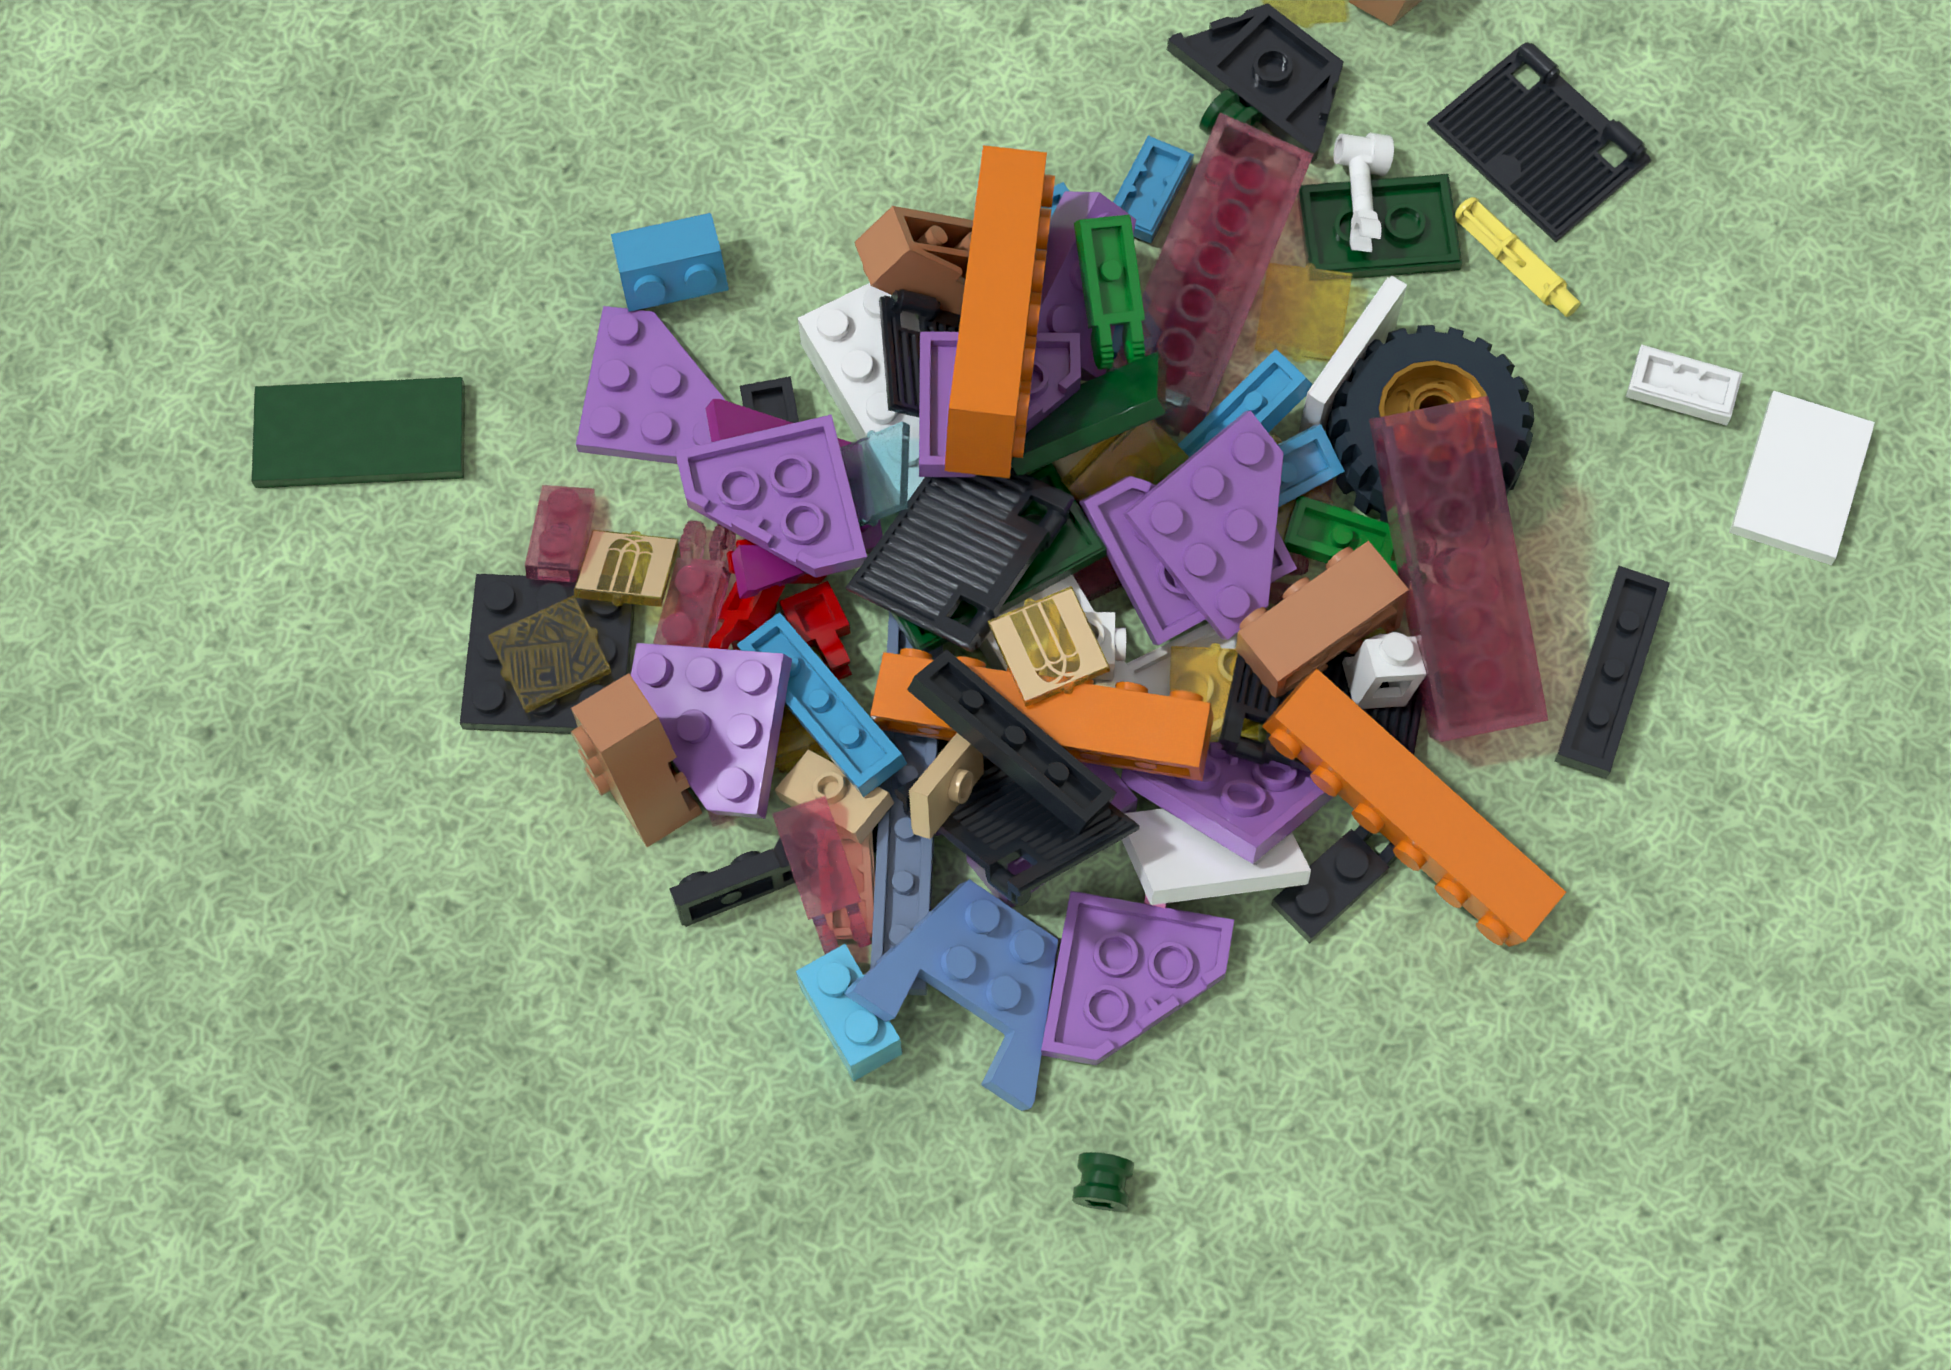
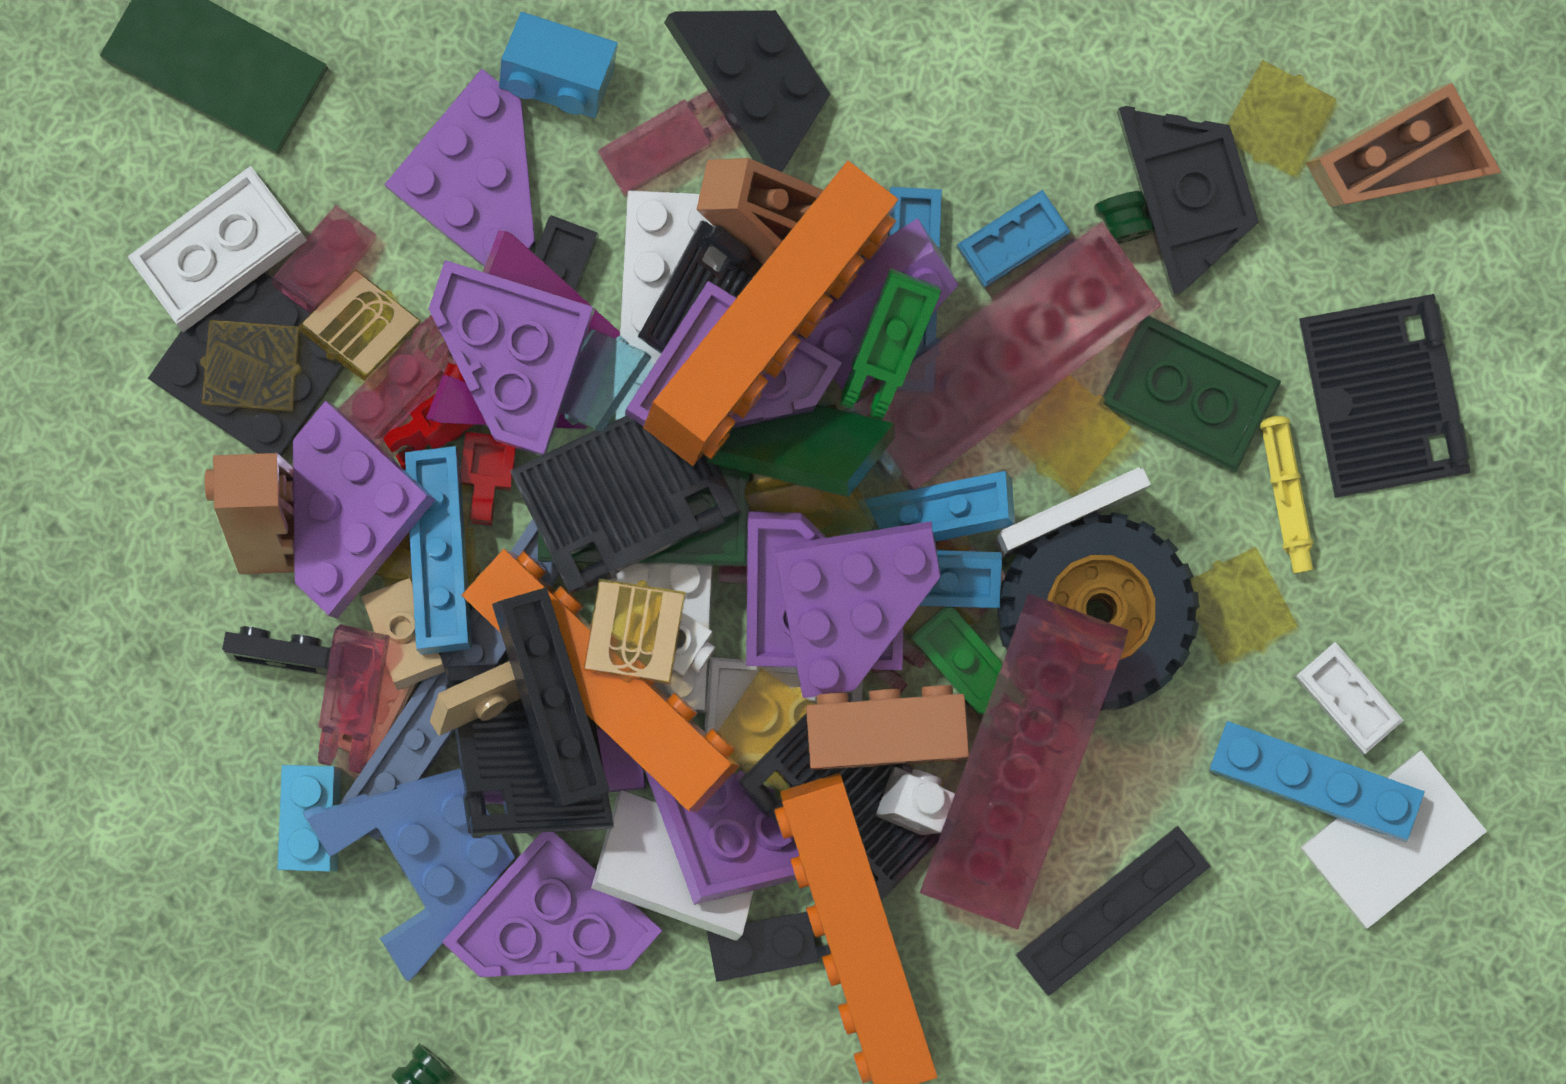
camera: 30 degrees right, 15 degrees up
(457, 577) = (217, 249): none -> white tile
(801, 275) = (661, 143): none -> clear pink hinge
(836, 177) = (753, 77): none -> black wing
(1364, 157) = (1215, 322): white brick -> none
(1548, 364) = (1240, 606): none -> clear yellow piece
(1707, 463) = (1316, 781): none -> dark azure plate

